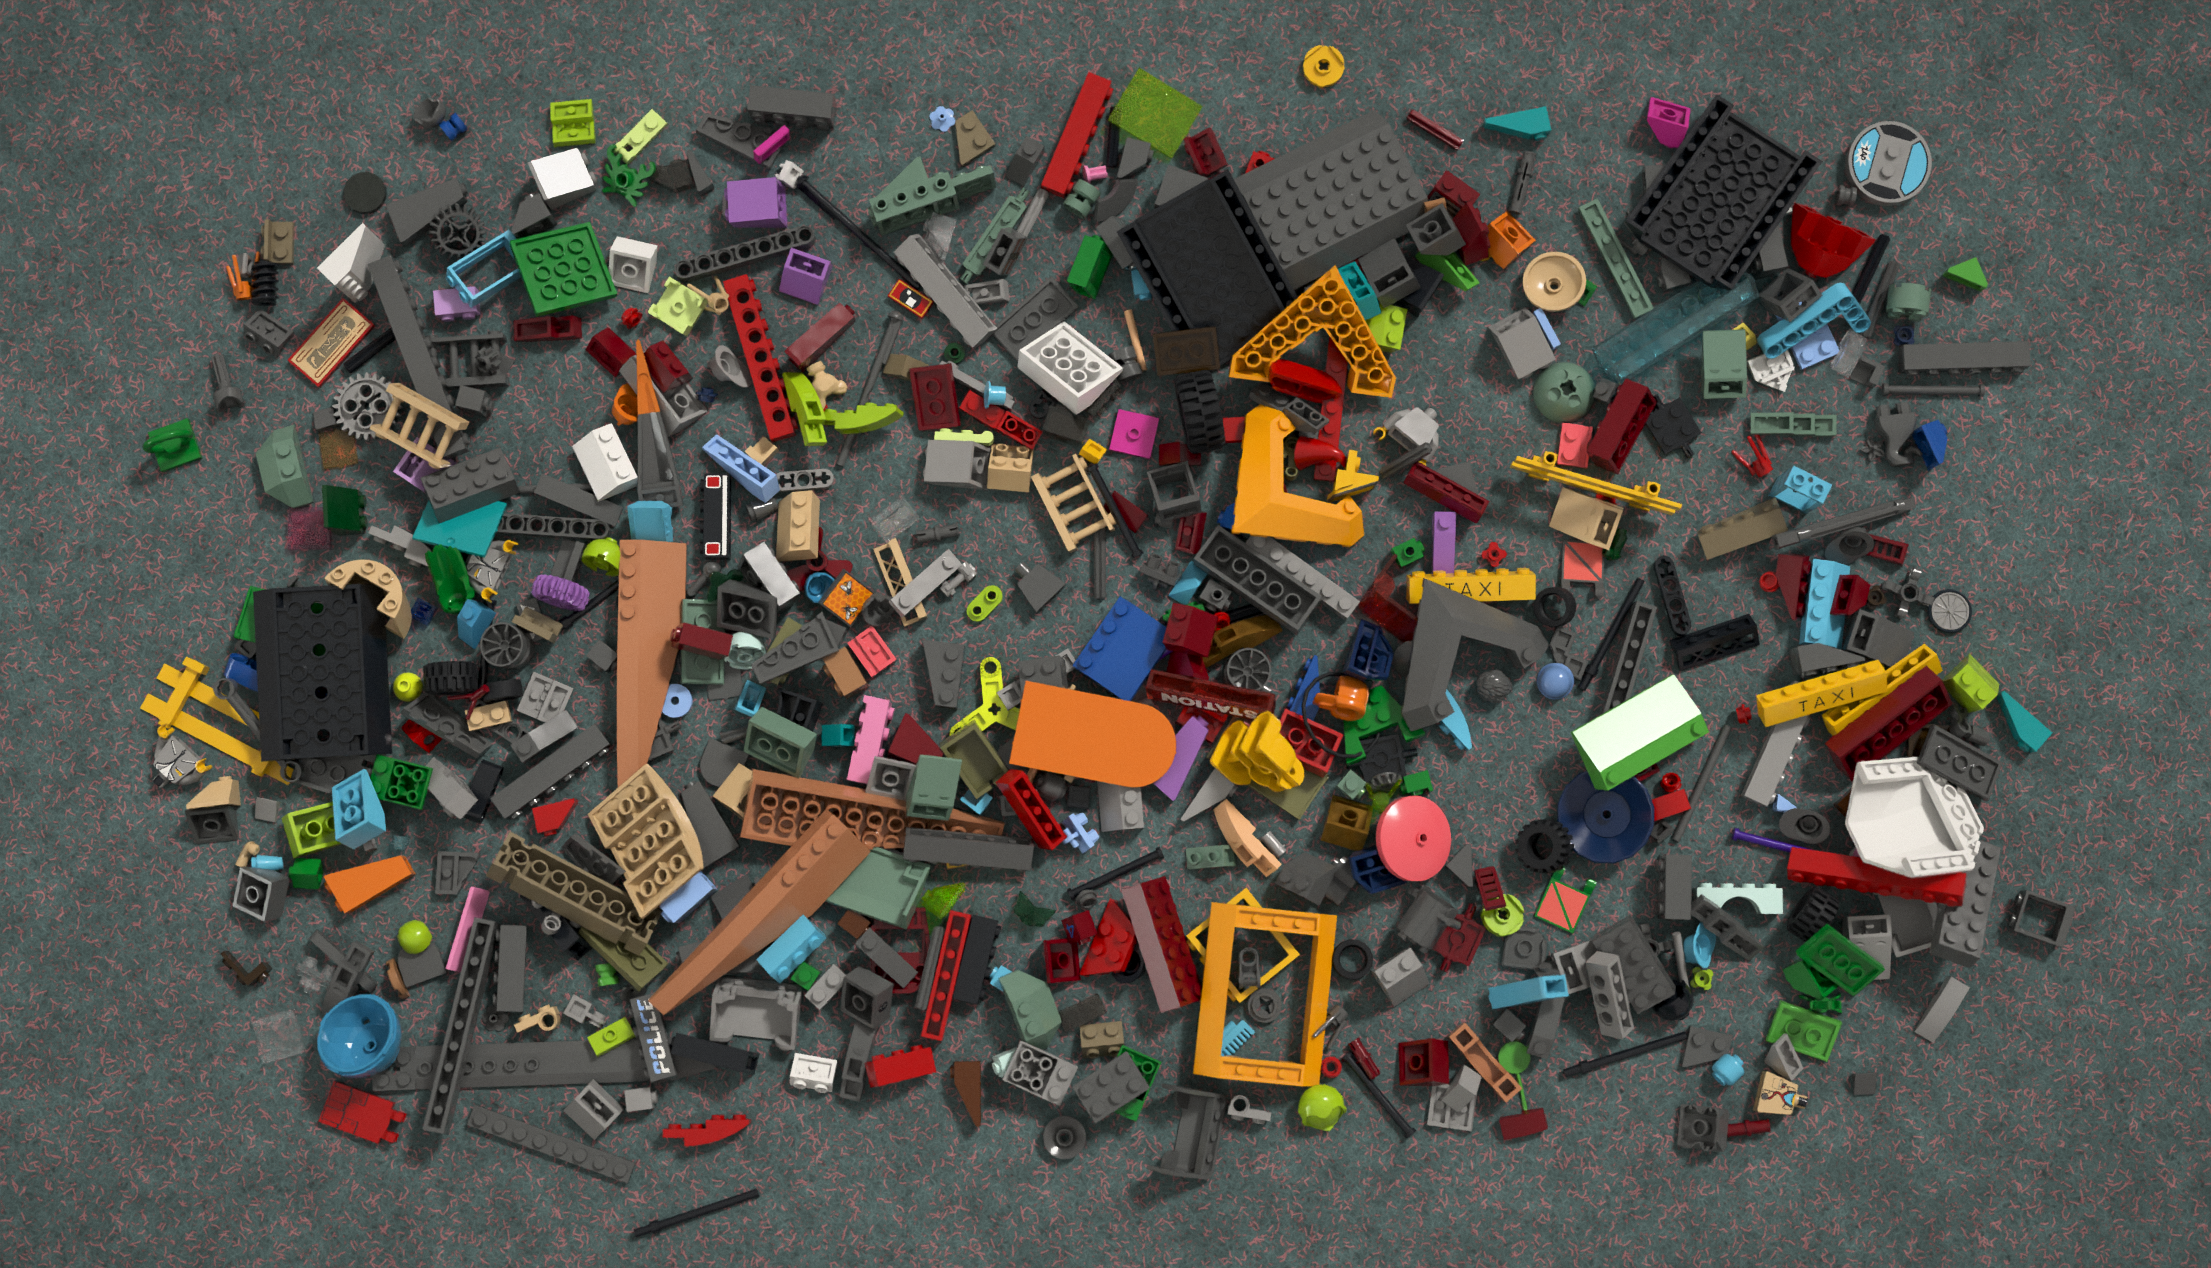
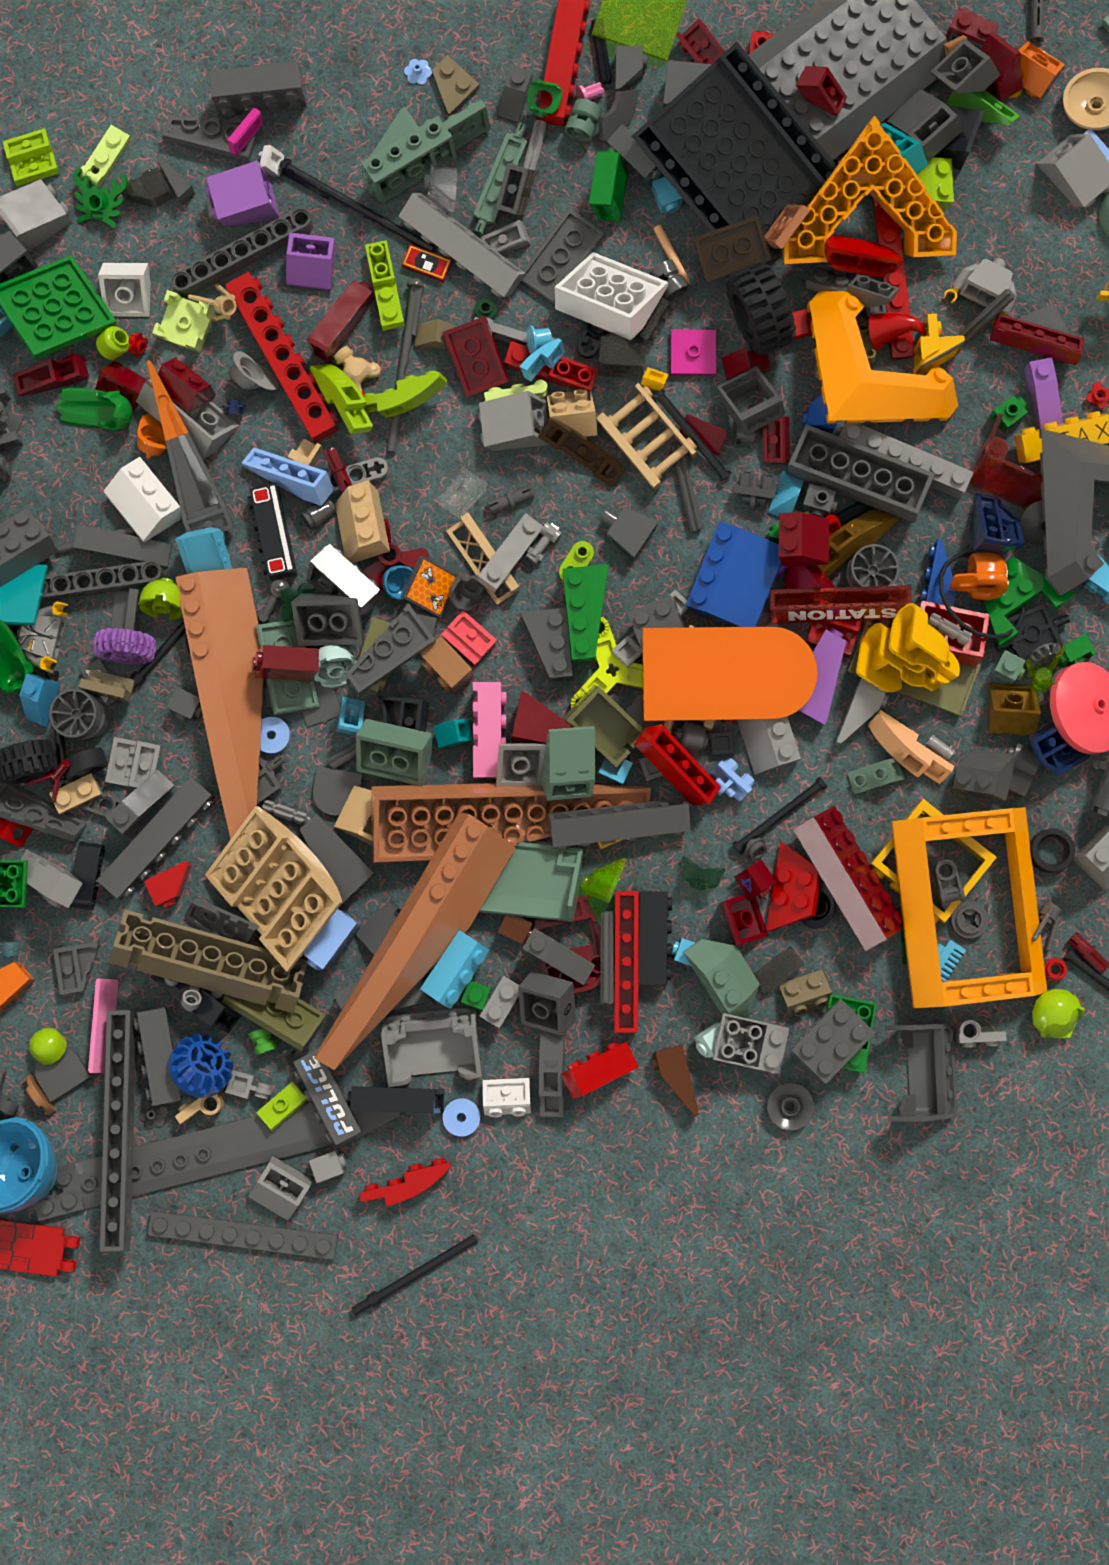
camera: 10 degrees left, 0 degrees up
(540, 985) = (194, 1066): none -> blue gear
(580, 369) = (94, 409): none -> green hair
(609, 312) = (112, 343): none -> lime head
(670, 772) = (284, 812): none -> light grey axle
(779, 1082) = (464, 1106): none -> light blue piece
(787, 473) = (337, 468): none -> dark red axle
(867, 312) = (384, 285): none -> lime slope
(981, 644) = (584, 603): none -> green wedge
(999, 410) = (546, 355): none -> medium azure slope
(1013, 503) = (583, 450): none -> dark brown slope
(1060, 170) = (552, 88): none -> green piece
(1237, 342) = (785, 225): none -> nougat tile
(1297, 226) = (821, 89): none -> dark red slope
(1302, 740) = (949, 629): none -> light grey axle

